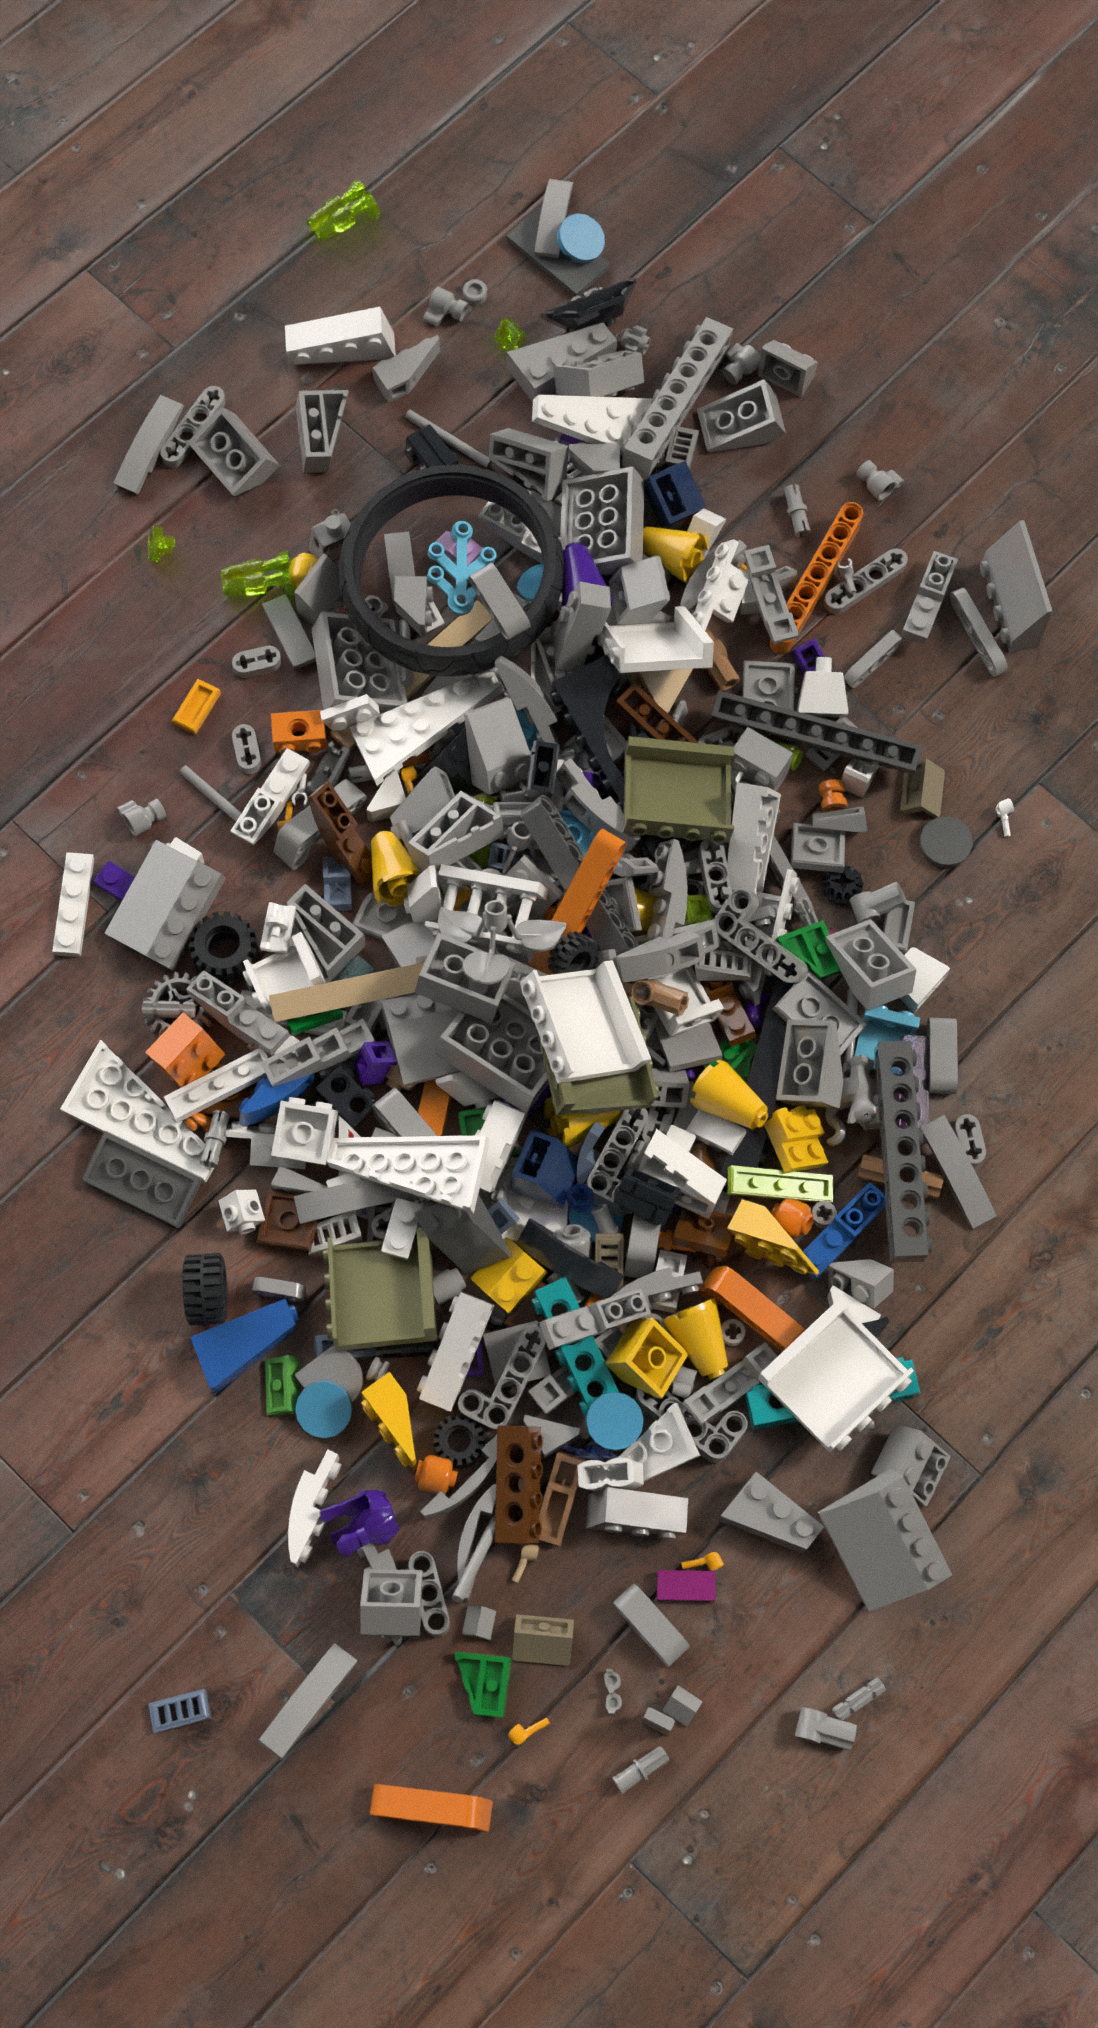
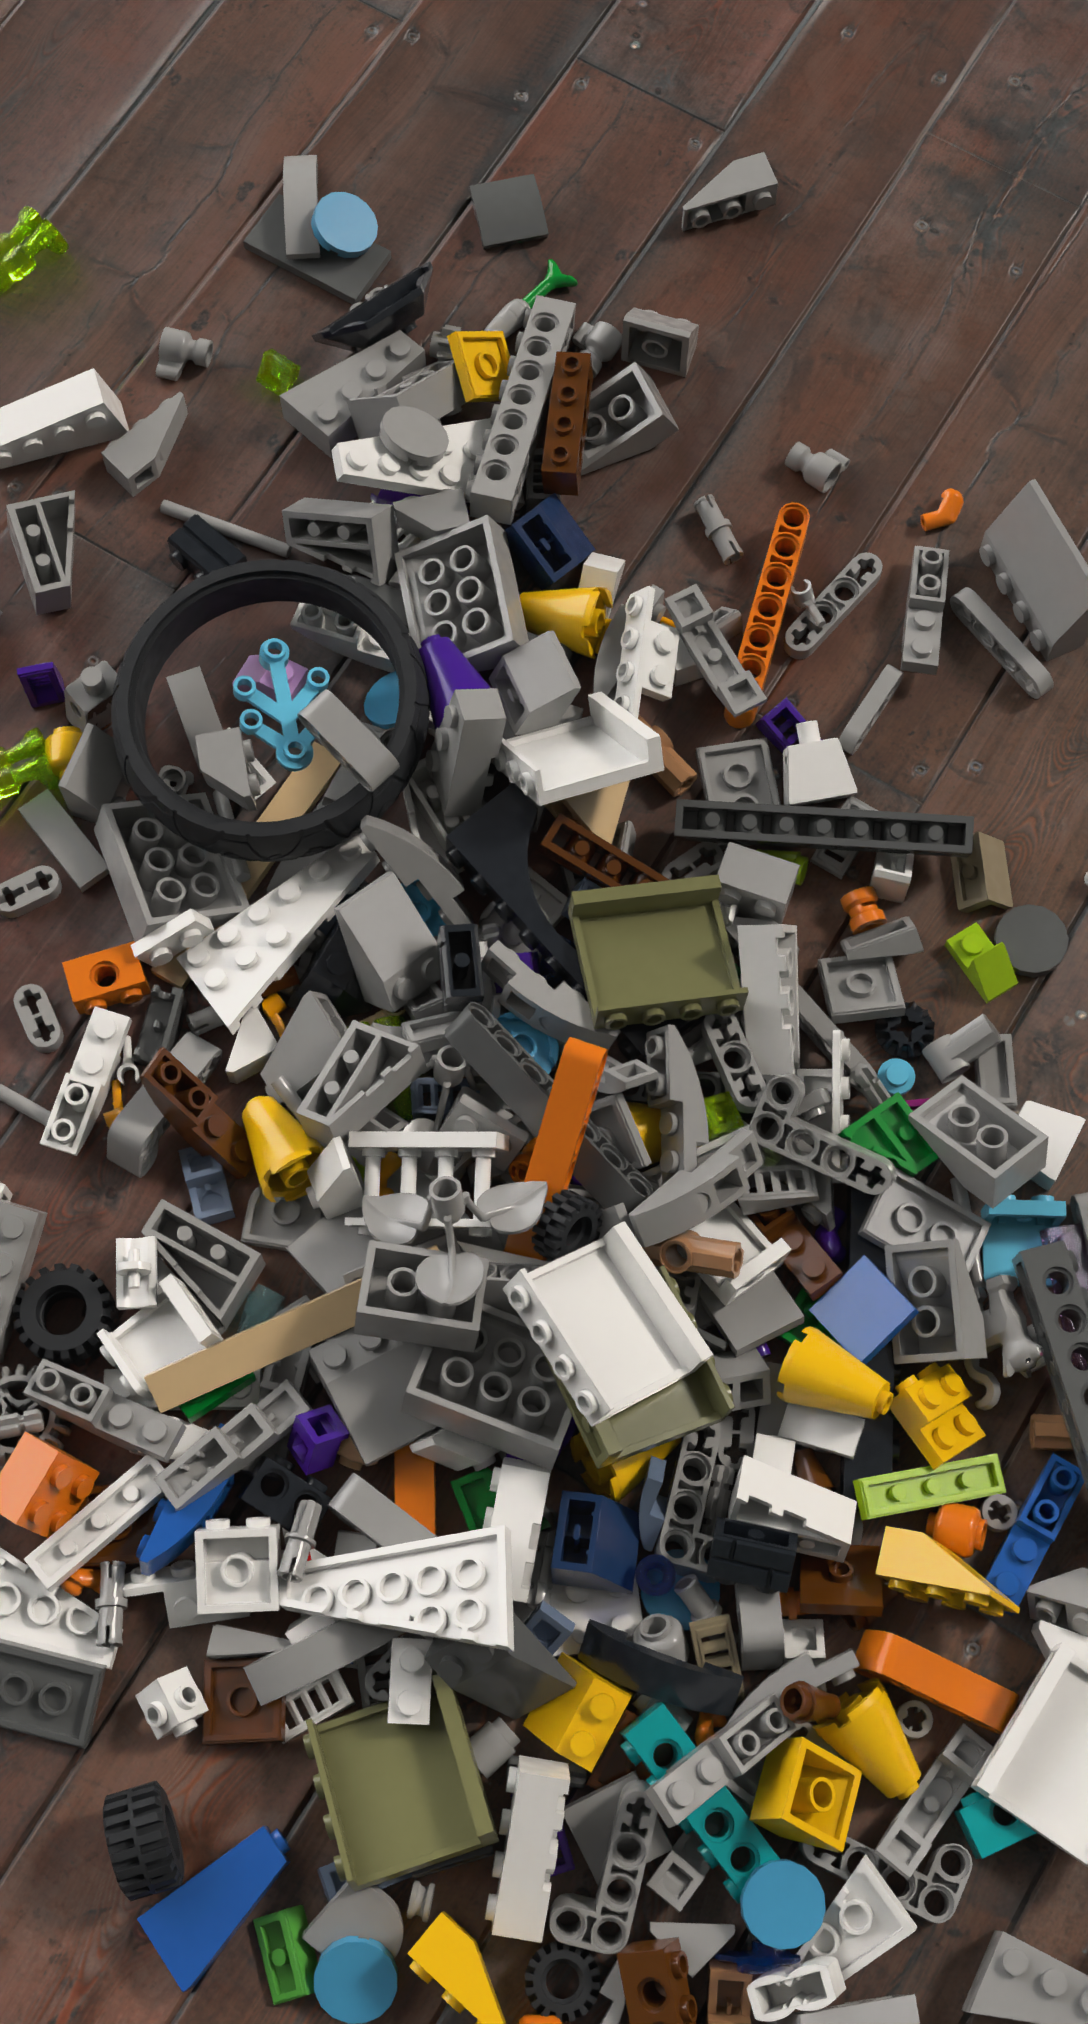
camera: 10 degrees left, 0 degrees up
(278, 1289) = (251, 1809): light grey beam -> none
(297, 521) = (42, 684): none -> dark purple slope
(349, 1123) = (300, 1540): none -> light grey axle
(475, 292) = (218, 325): light grey tile -> none
(593, 400) = (413, 435): none -> light grey tile
(654, 358) = (480, 363): none -> yellow tile
(660, 1297) = (807, 1703): none -> reddish brown cone
(683, 1382) = (866, 1817): light grey piece -> none
(686, 327) = (513, 313): none -> piece
(702, 251) = (508, 211): none -> dark grey slope
(705, 413) = (567, 423): none -> reddish brown brick
(763, 1059) = (863, 1310): none -> tile
(828, 912) = (896, 1076): none -> medium azure plate
(870, 269) = (738, 189): none -> light grey slope
(908, 849) = (982, 962): none -> lime slope
(964, 532) = (947, 512): none -> orange arm

